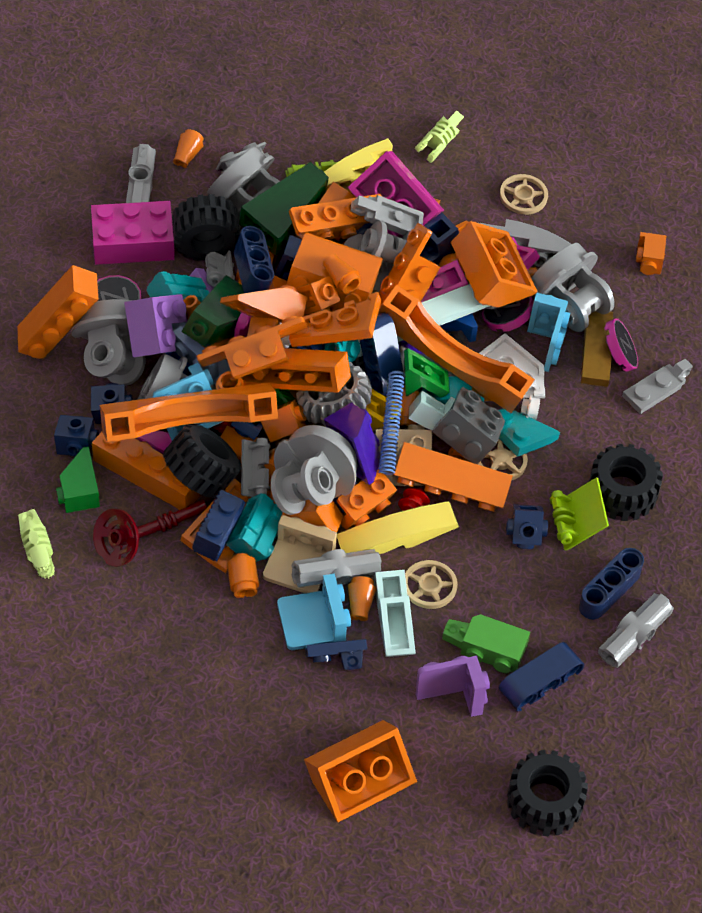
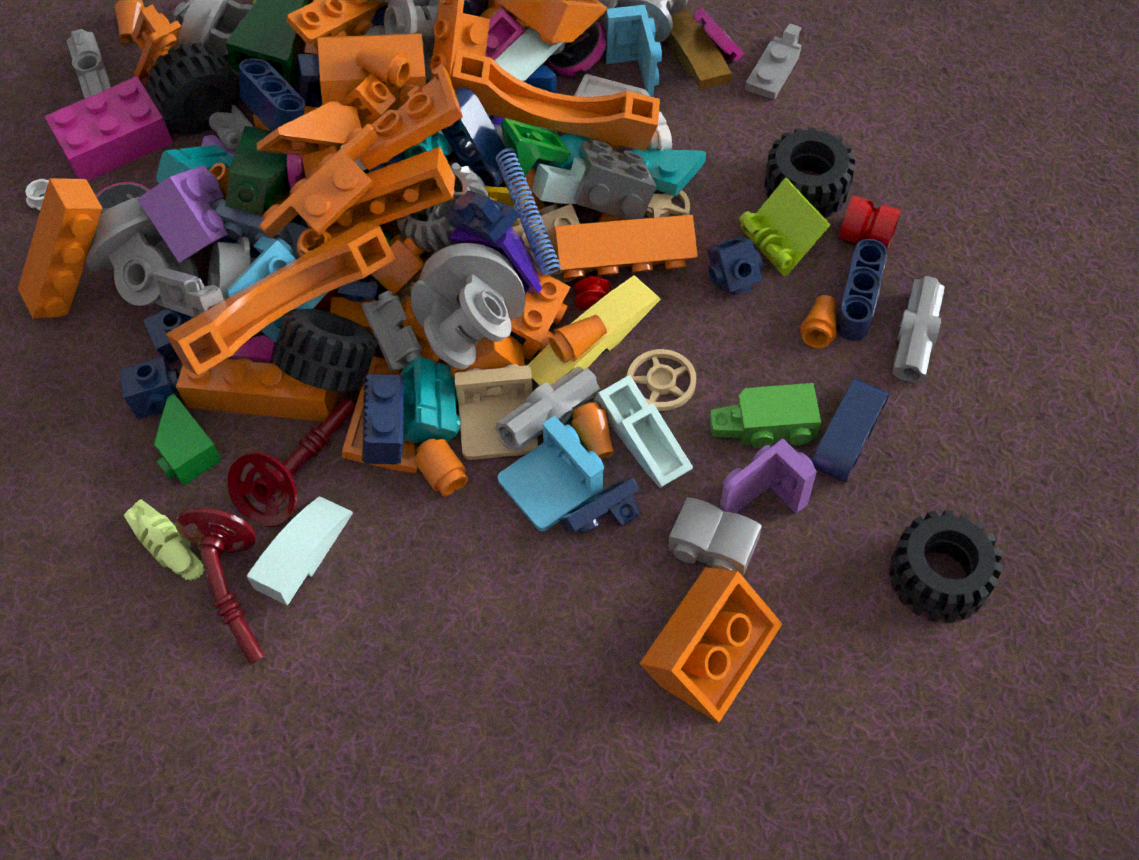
camera: 20 degrees left, 5 degrees up
(60, 257) = (35, 193): none -> white plate
(68, 556) = (213, 540): none -> dark red dish
(121, 588) = (298, 550): none -> light aqua slope
(127, 381) = (185, 292): none -> light grey hinge
(195, 181) = (154, 38): none -> orange bracket
(350, 413) = (481, 216): none -> dark blue hinge
(381, 528) = (576, 338): none -> orange cone
(402, 704) = (714, 536): none -> light grey brick
(565, 596) = (820, 324): none -> orange cone
(644, 536) = (866, 222): none -> red wheel

